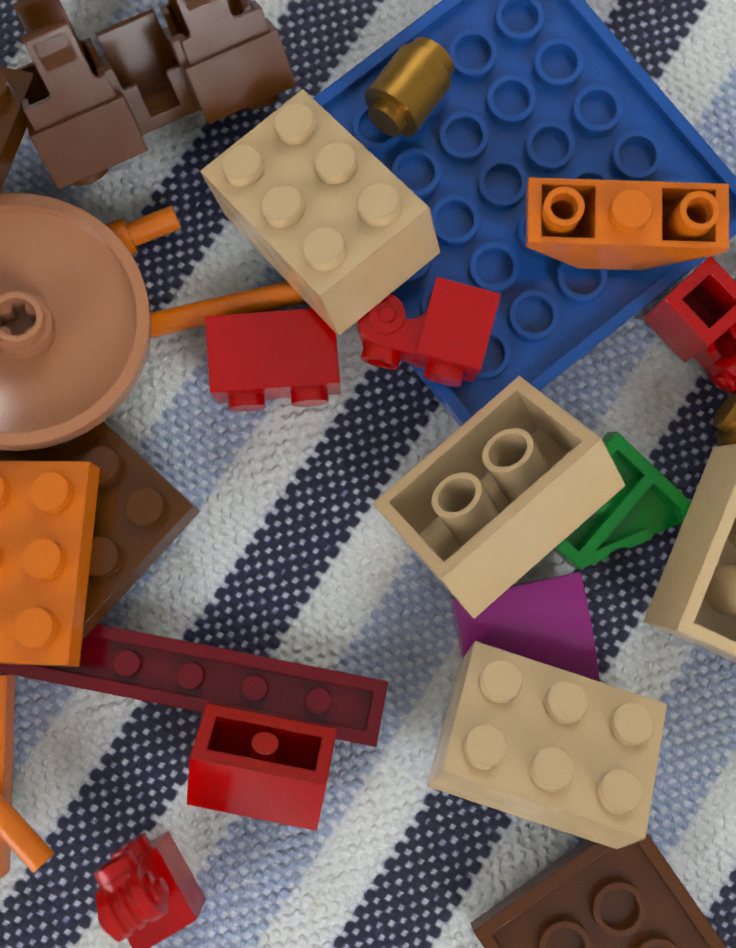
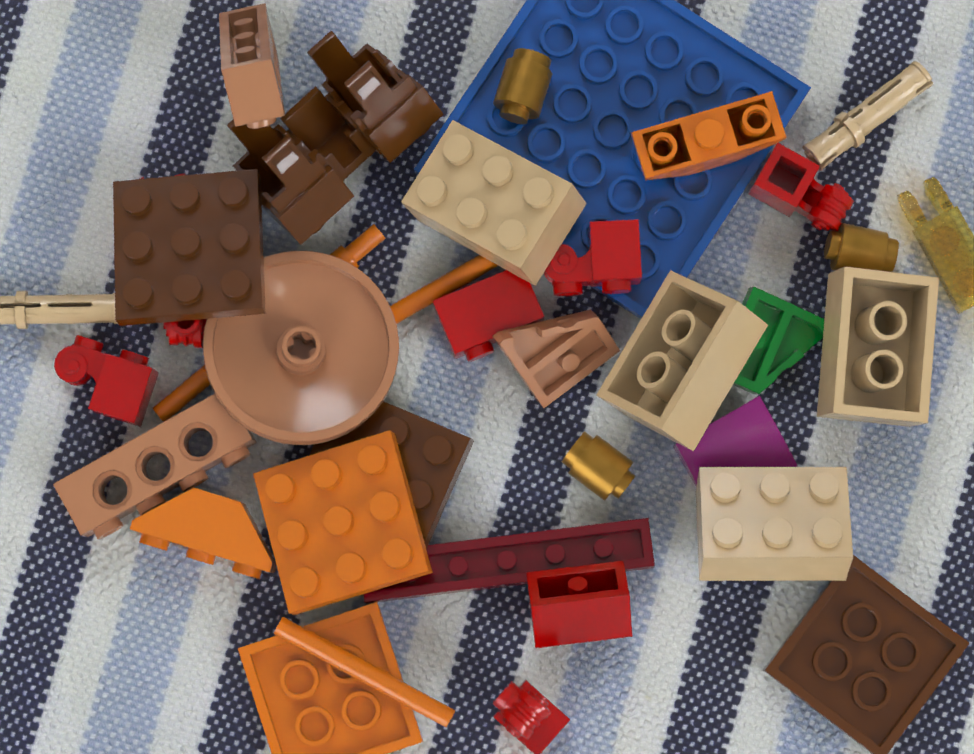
camera: 10 degrees left, 0 degrees up
(341, 433) = (557, 352): none -> nougat wing
(348, 594) = (599, 466): none -> pearl gold brick

